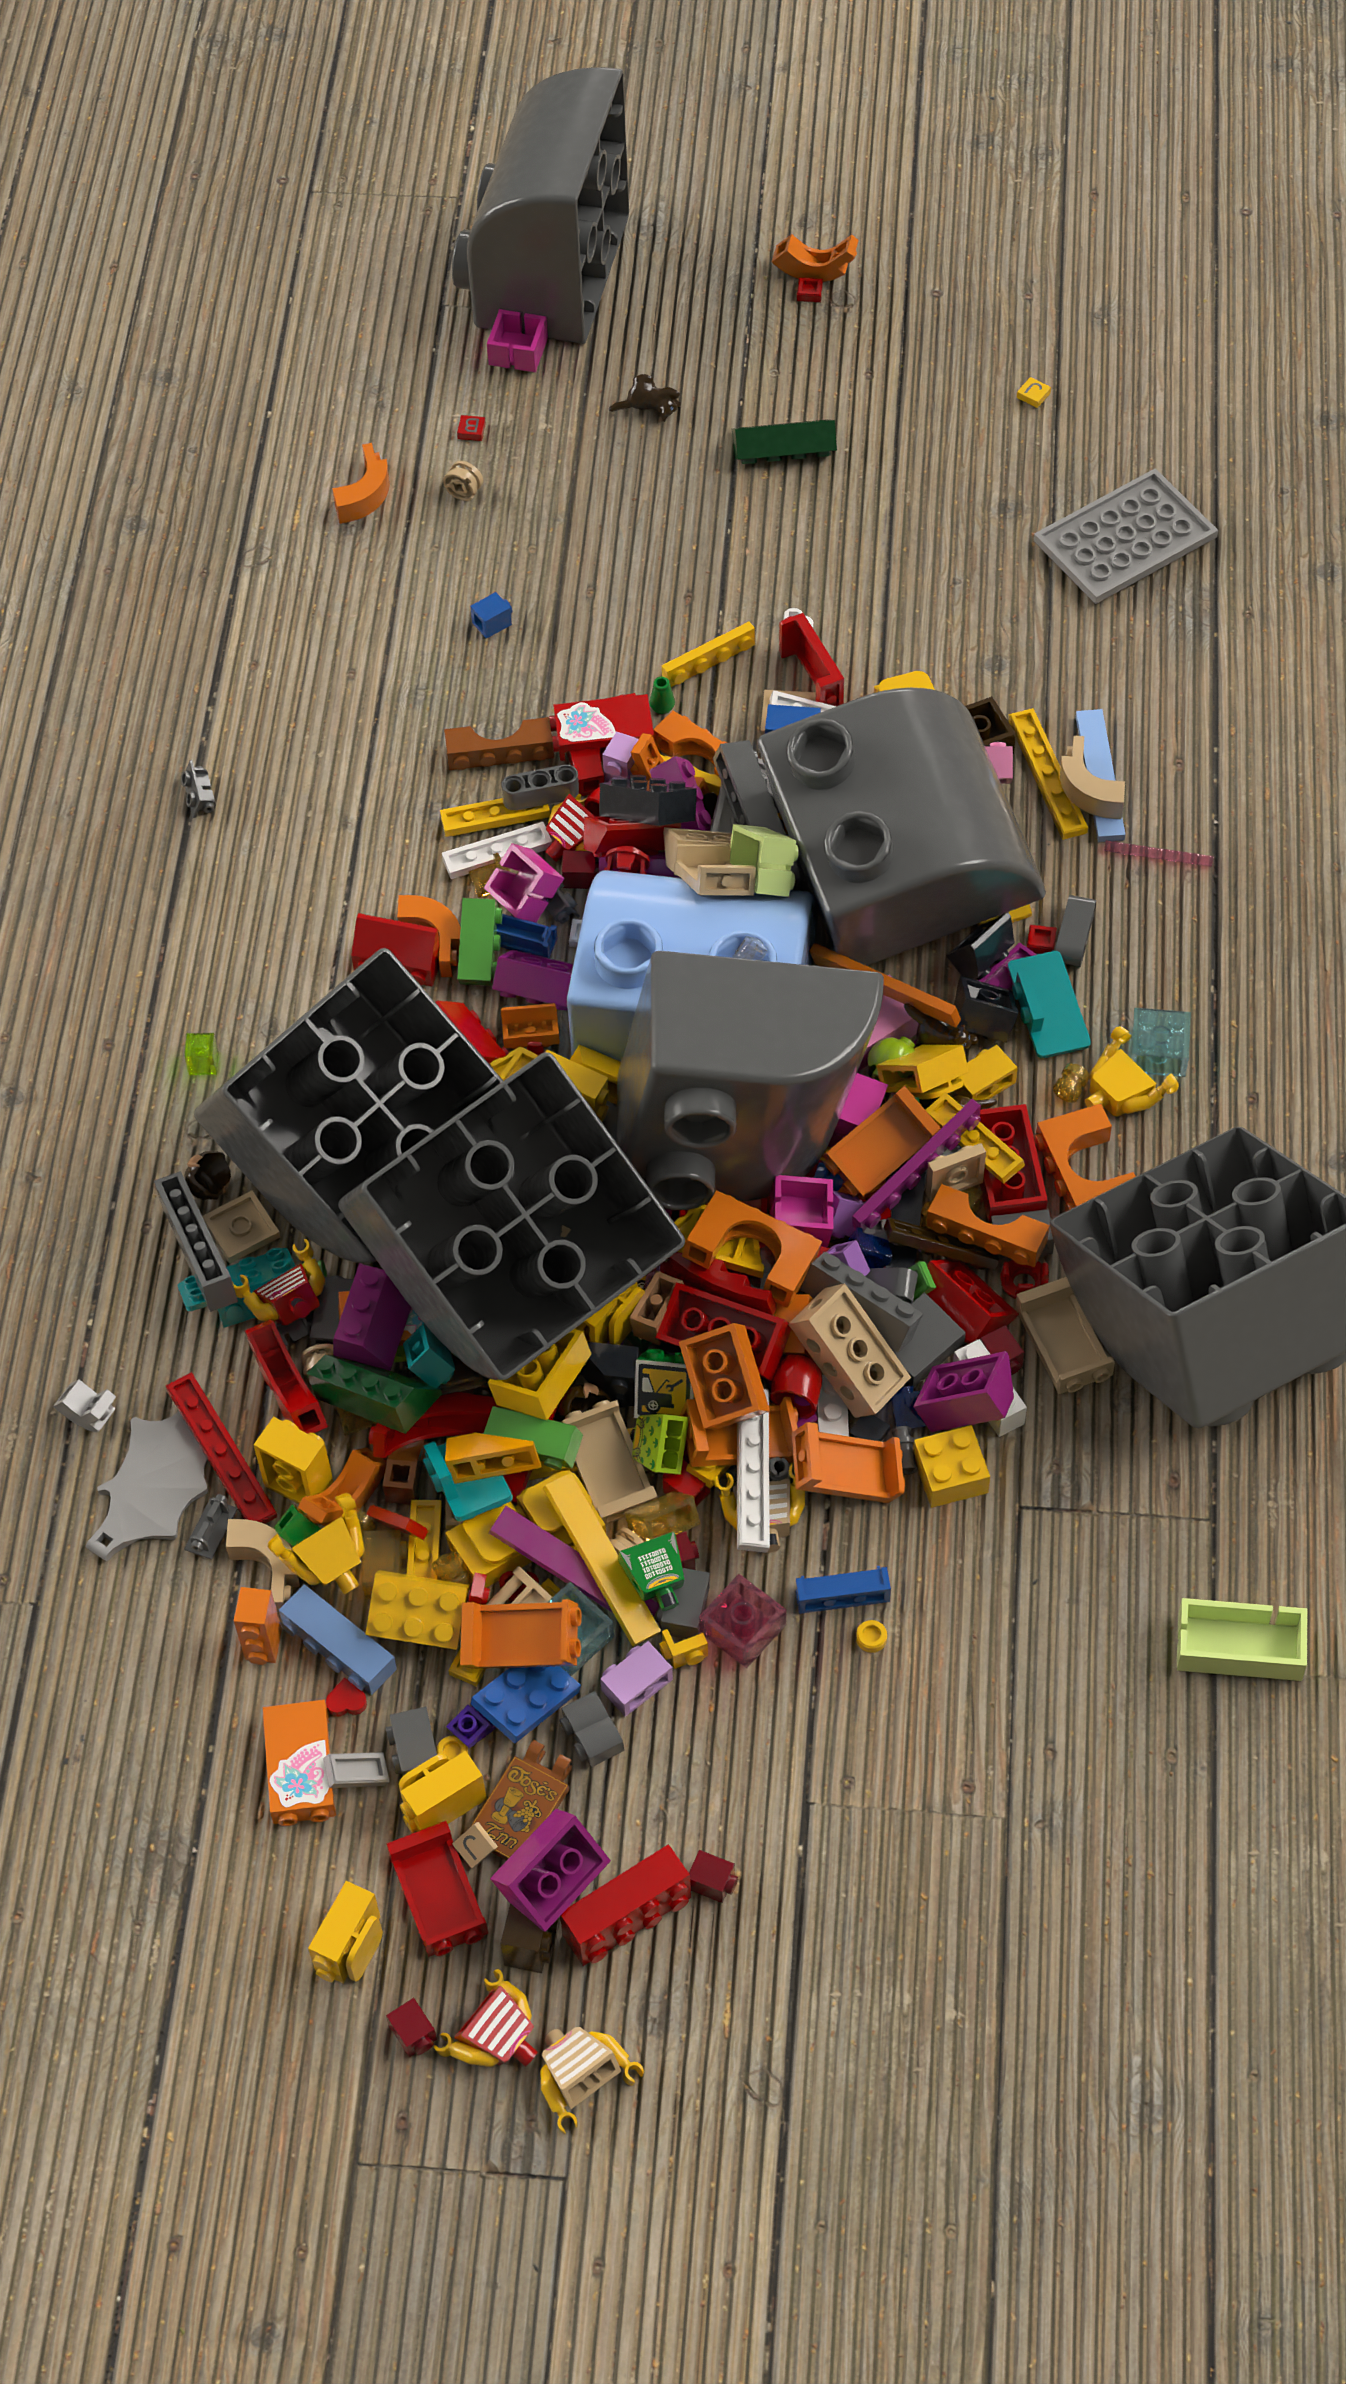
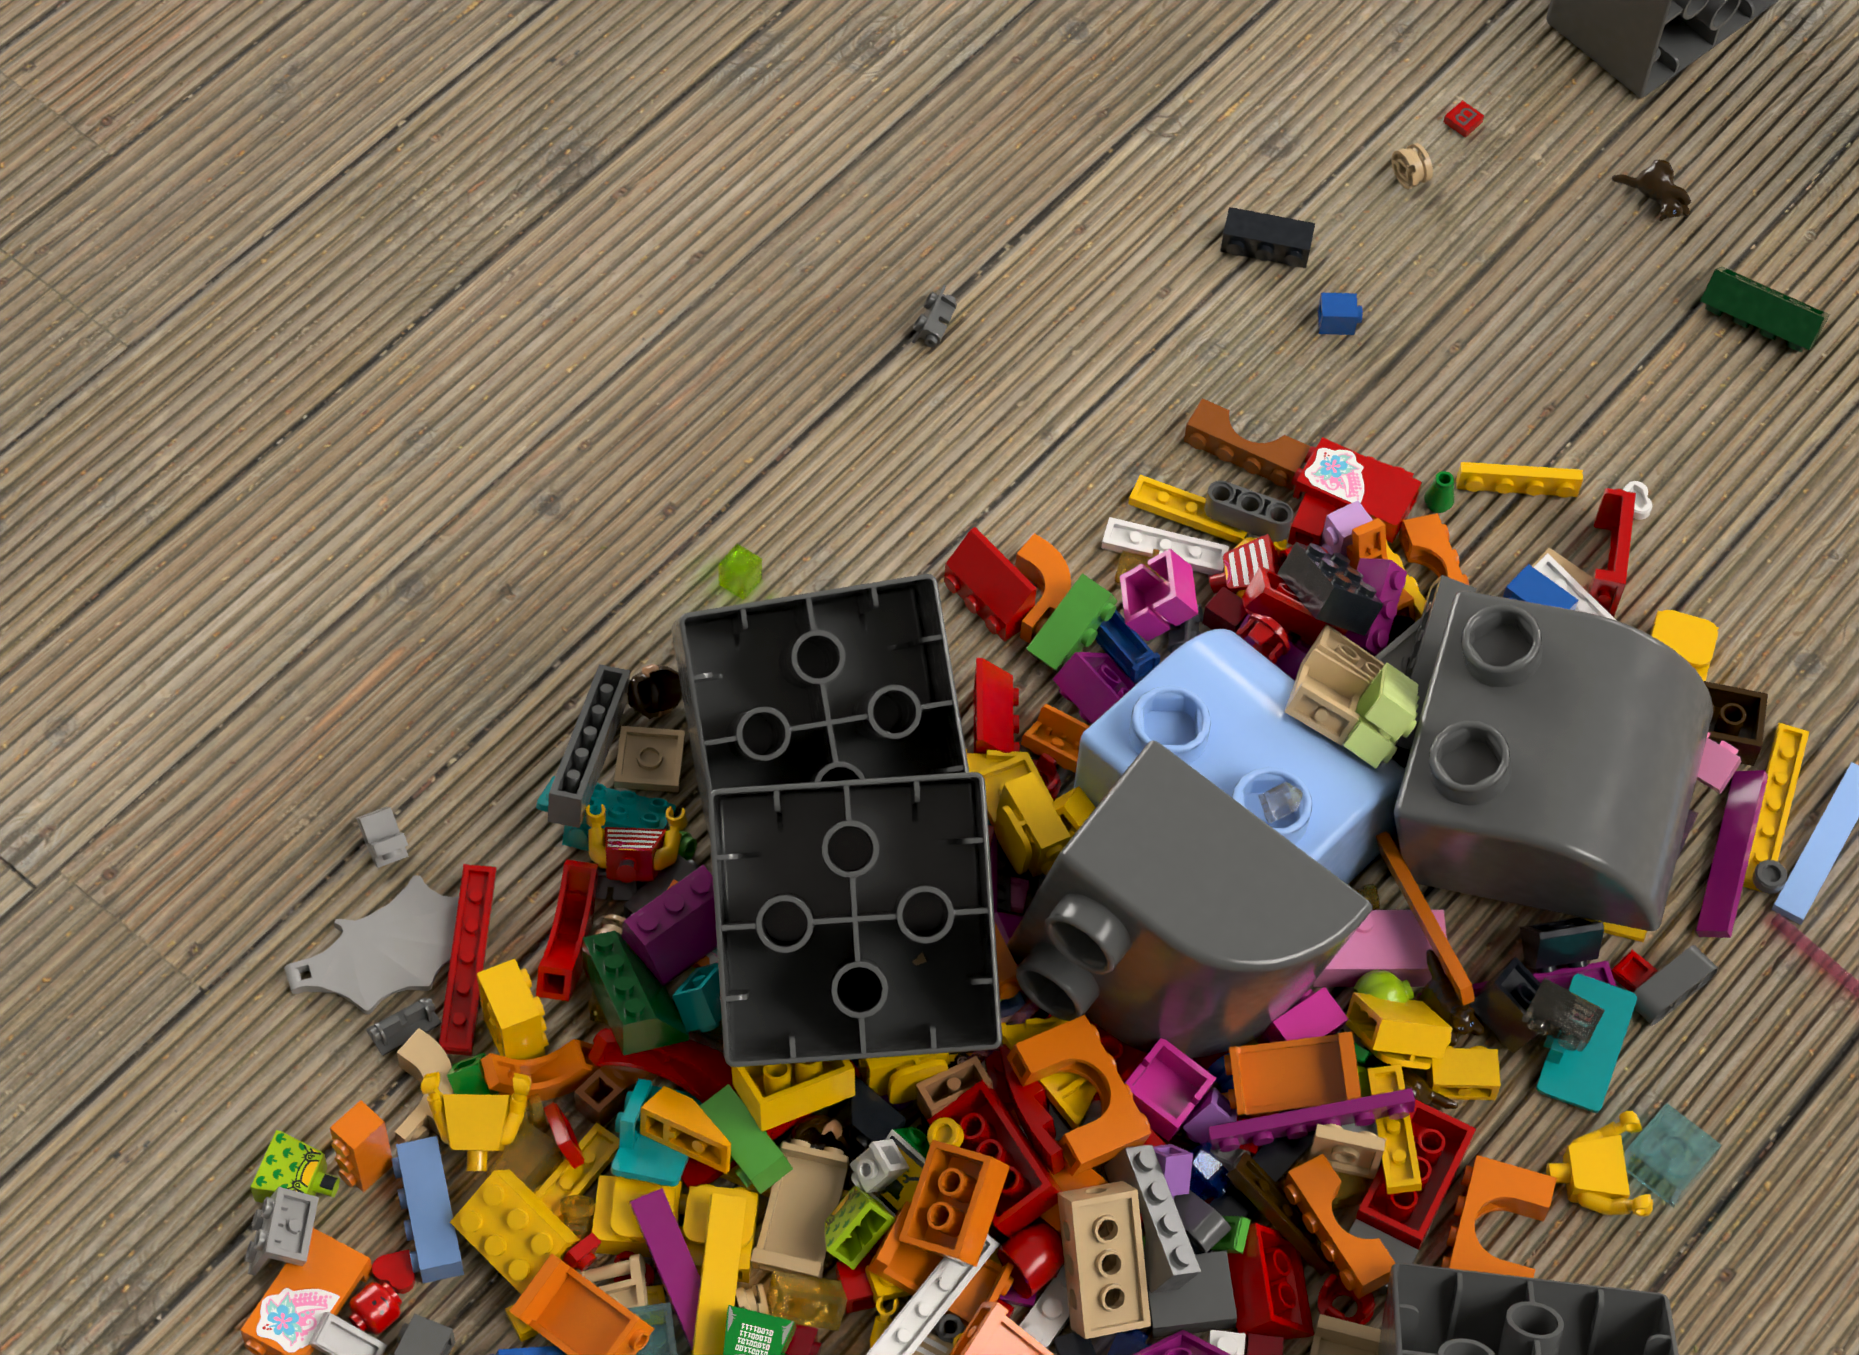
camera: 30 degrees right, 0 degrees up
(215, 1682) = (294, 1167): none -> lime torso
(241, 1723) = (282, 1229): none -> light grey bracket
(354, 1731) = (375, 1308): none -> red head
(368, 493) = (1315, 125): orange arch -> none
(398, 590) = (1267, 237): none -> black brick
(510, 347) = (1563, 58): dark pink piece -> none
(649, 1384) = (878, 1166): none -> white brick
(674, 1334) = (945, 1131): none -> yellow tile
(1028, 990) = (1562, 1015): none -> clear smoke brick
(1047, 821) = (1732, 854): none -> magenta tile
(1070, 1084) = (1547, 1137): clear yellow wheel -> none
(1082, 819) = (1769, 876): none -> dark grey tile
(1087, 791) = (1805, 865): tan arch -> none

